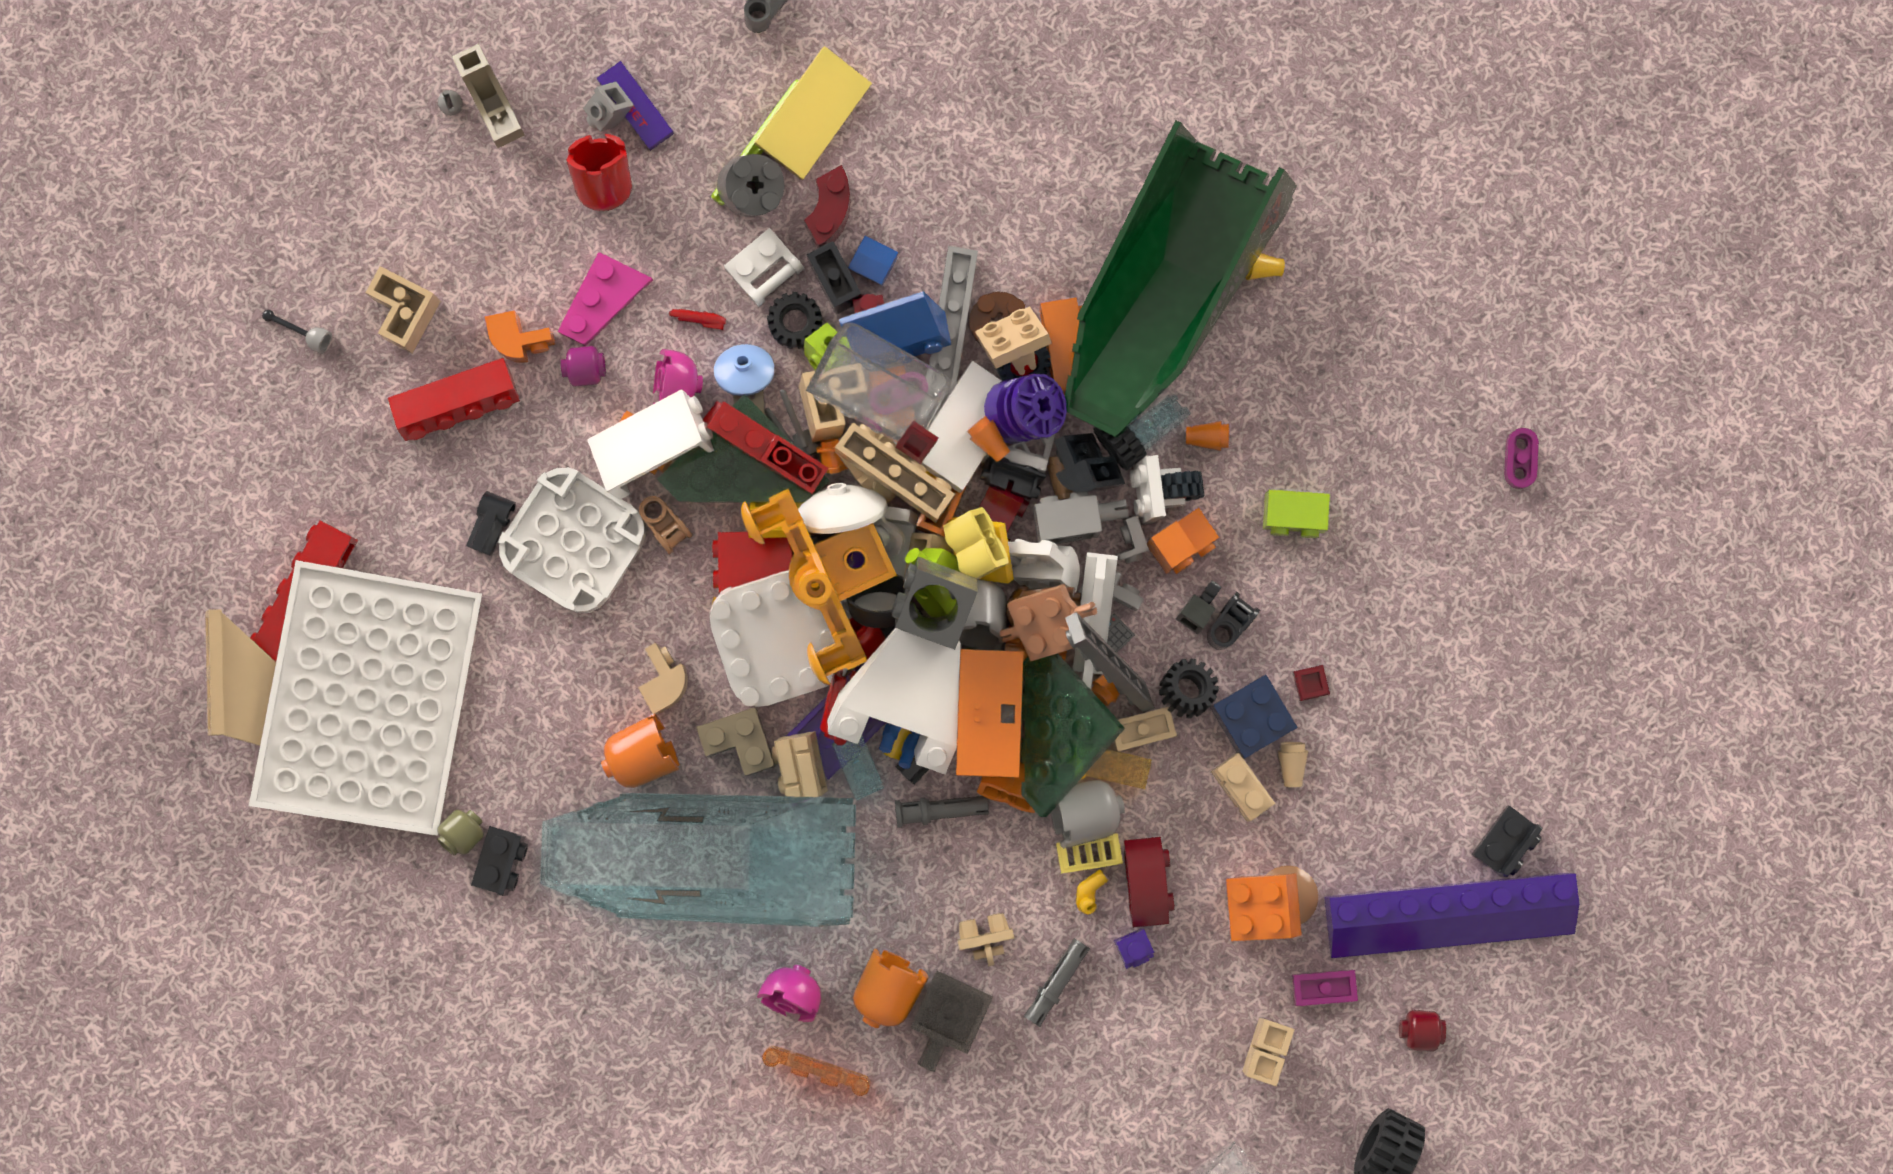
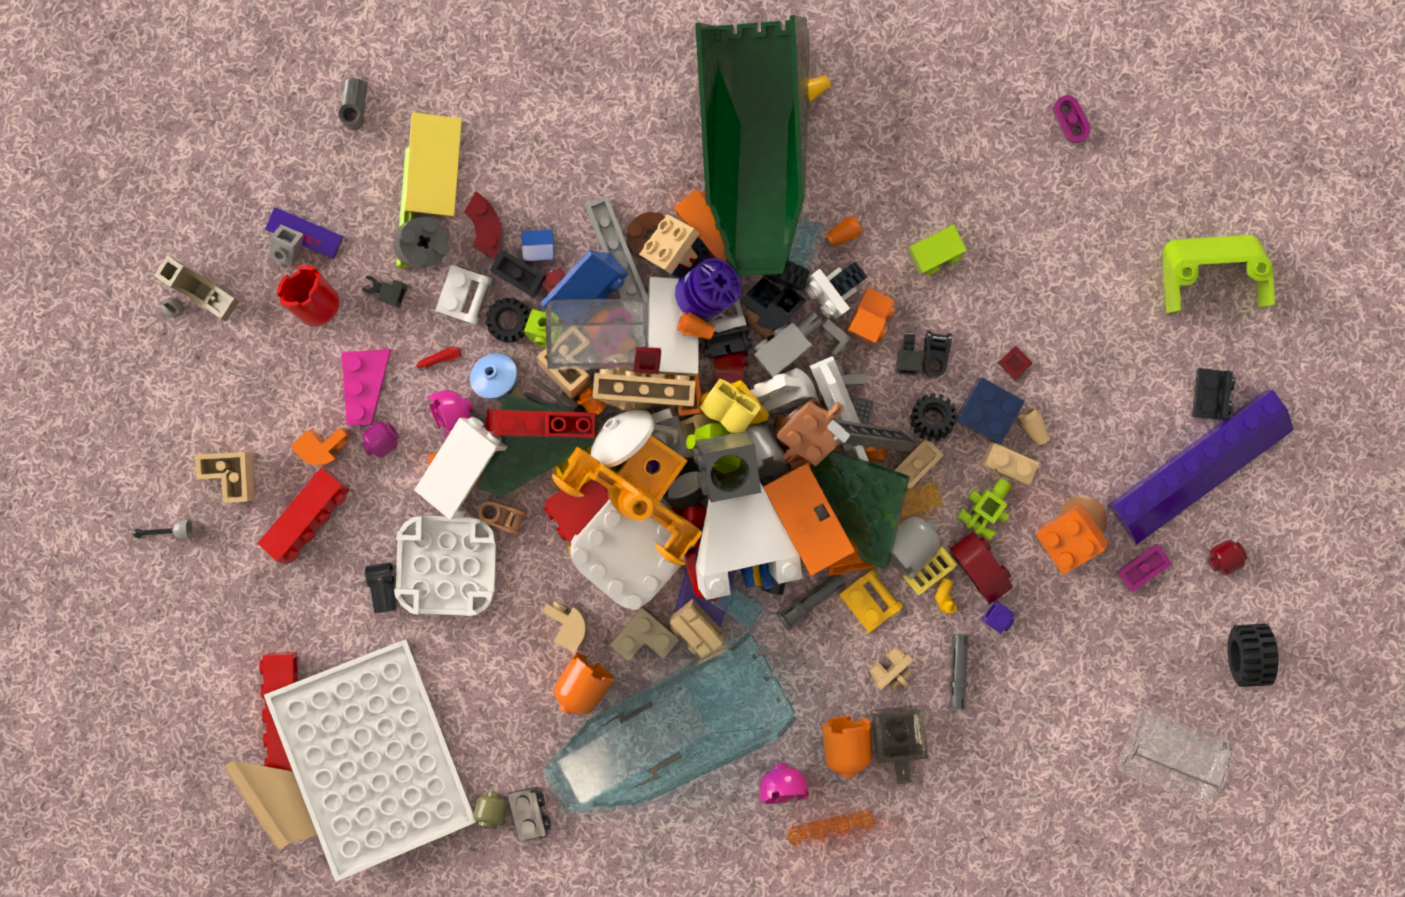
camera: 25 degrees left, 5 degrees up
(685, 218) = (388, 293): none -> pearl dark grey piece
(995, 848) = (863, 604): none -> yellow plate
(1192, 820) = (988, 506): none -> lime piece
(1266, 1046) = (1127, 629): tan hips -> none
(1560, 673) = (1184, 255): none -> lime windscreen

